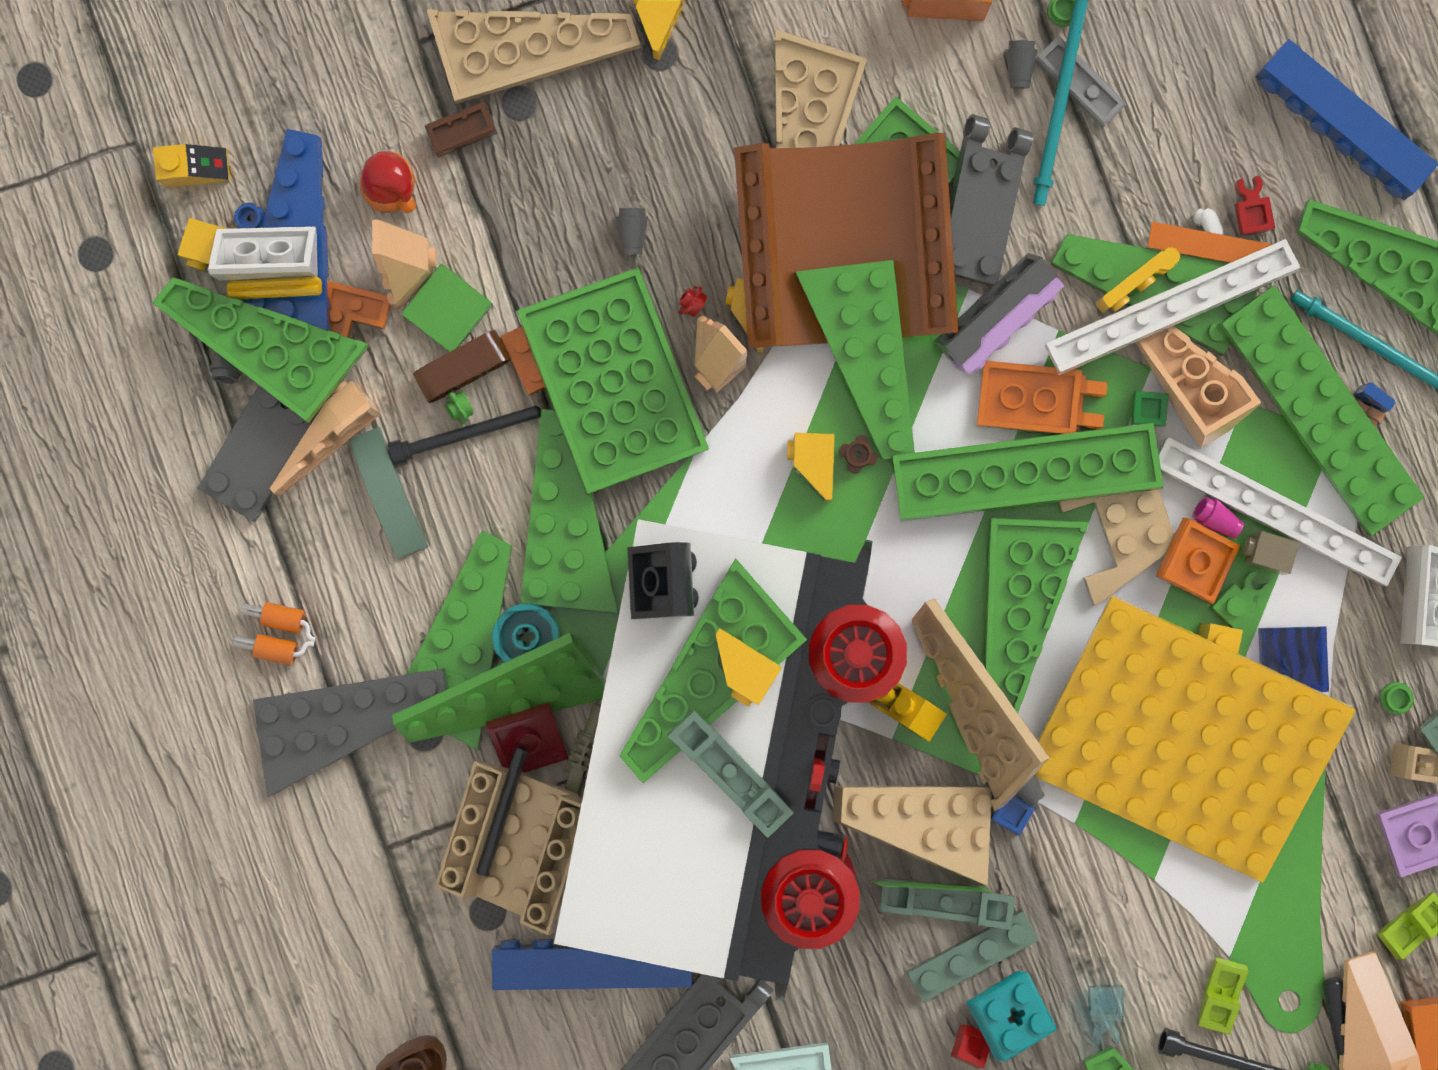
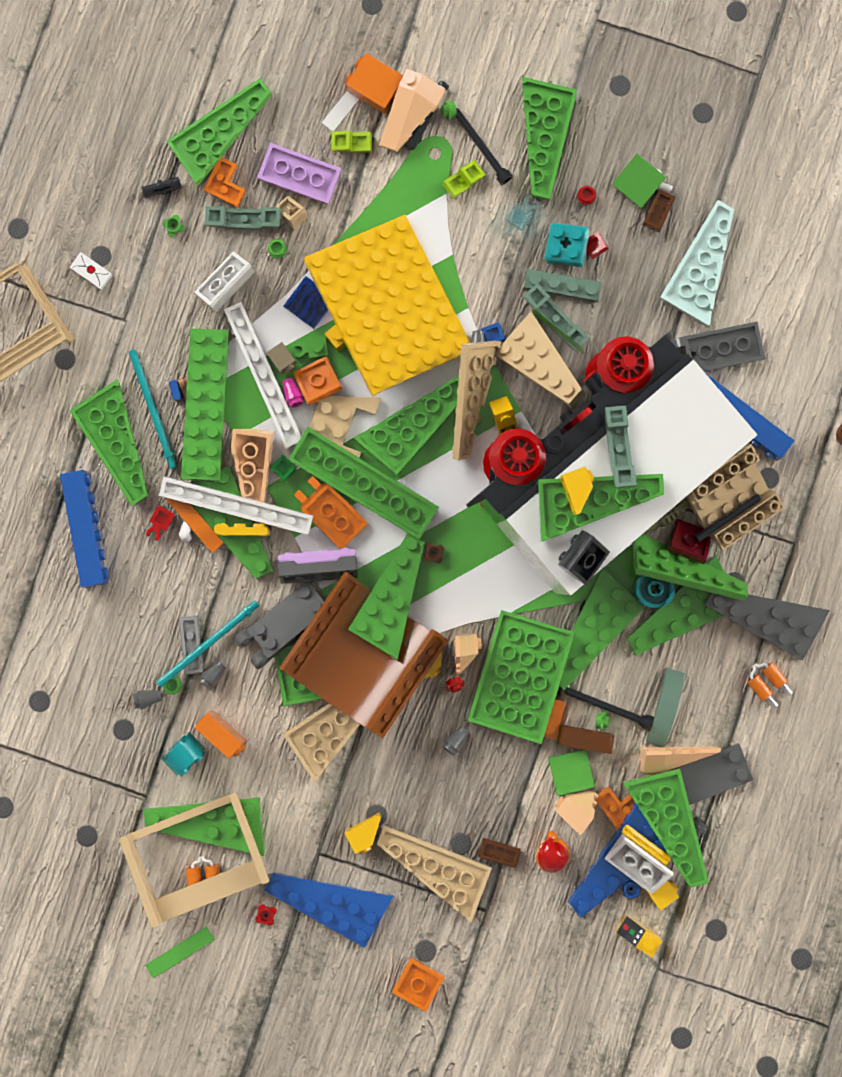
camera: 135 degrees left, 0 degrees up
(814, 461) = (457, 565): yellow slope -> none

